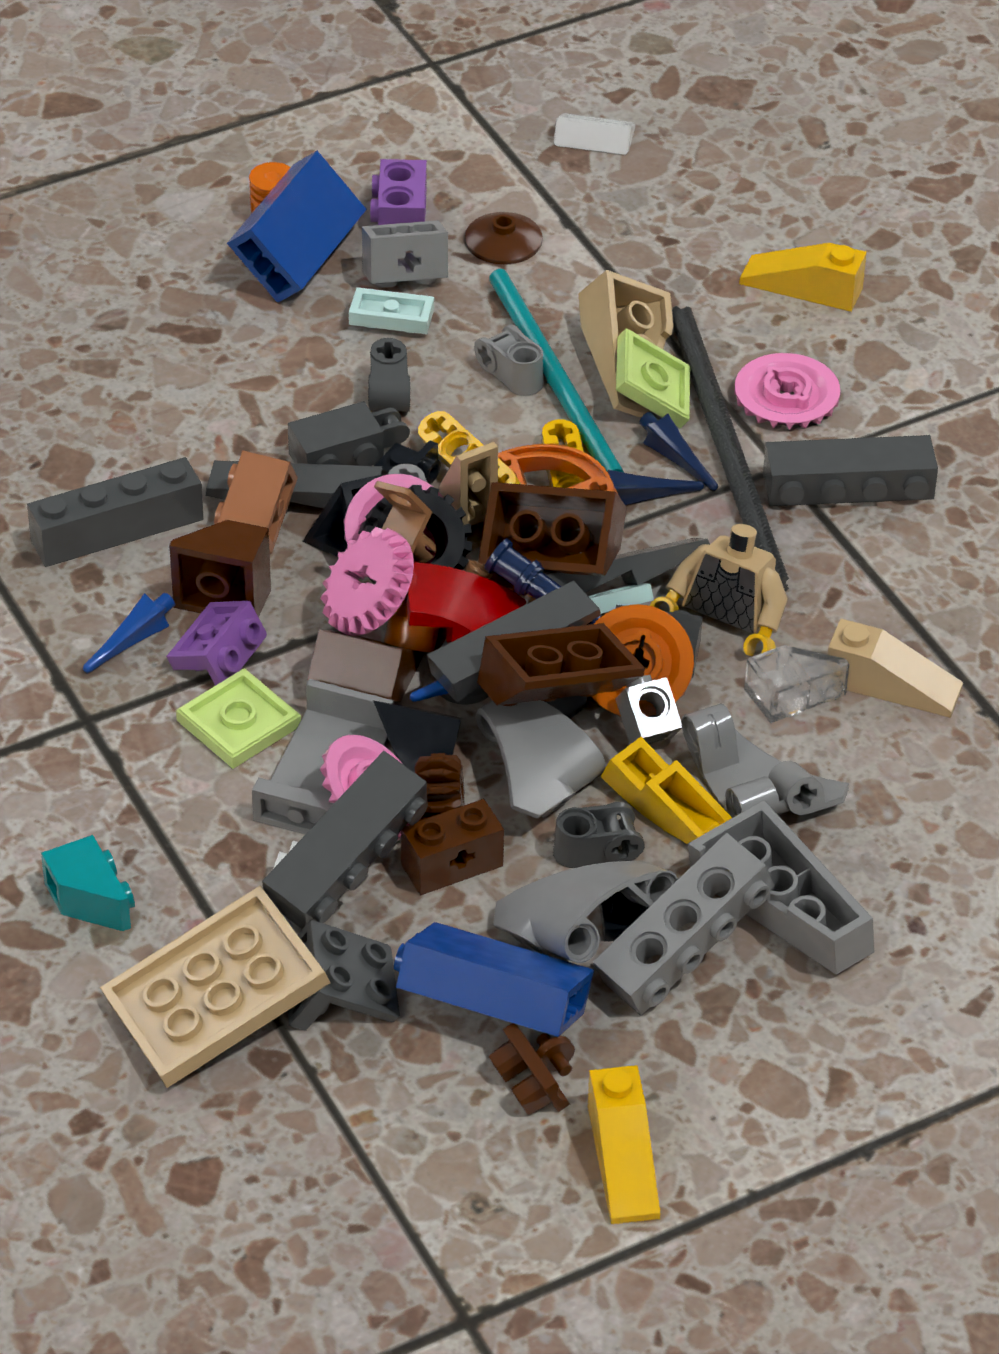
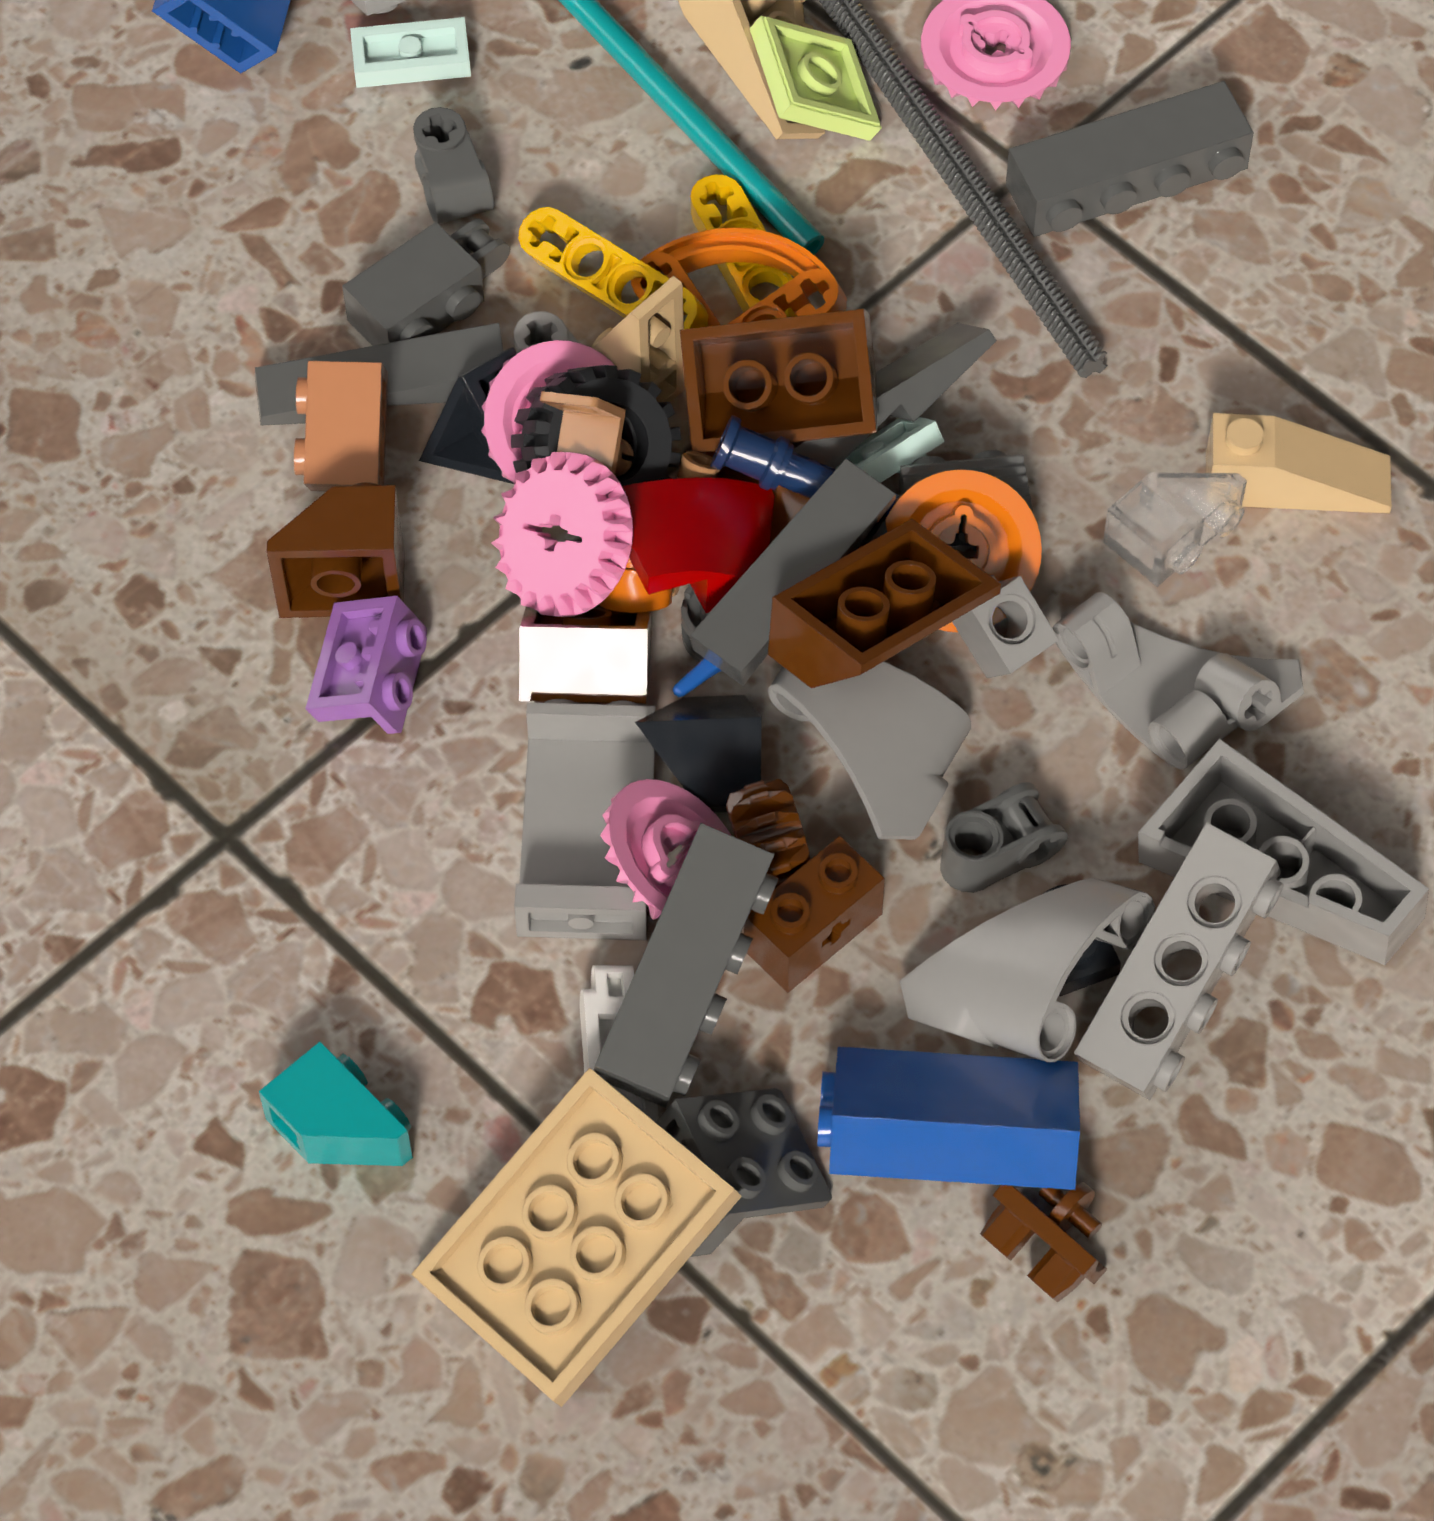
camera: 15 degrees left, 15 degrees up
(115, 511) = (148, 490): dark grey brick -> none
(142, 622) = (250, 656): blue piece -> none
(238, 718) = (439, 778): yellowish green tile -> none
(425, 459) = (516, 295): black bracket -> none
(512, 360) = (608, 92): light grey piece -> none
(623, 1144) = (1207, 1320): yellow slope -> none
(639, 488) = (855, 256): dark blue piece -> none
(663, 792) = (1072, 750): yellow slope -> none
(668, 441) = (865, 170): dark blue piece -> none
(732, 585) = (1044, 392): torso -> none

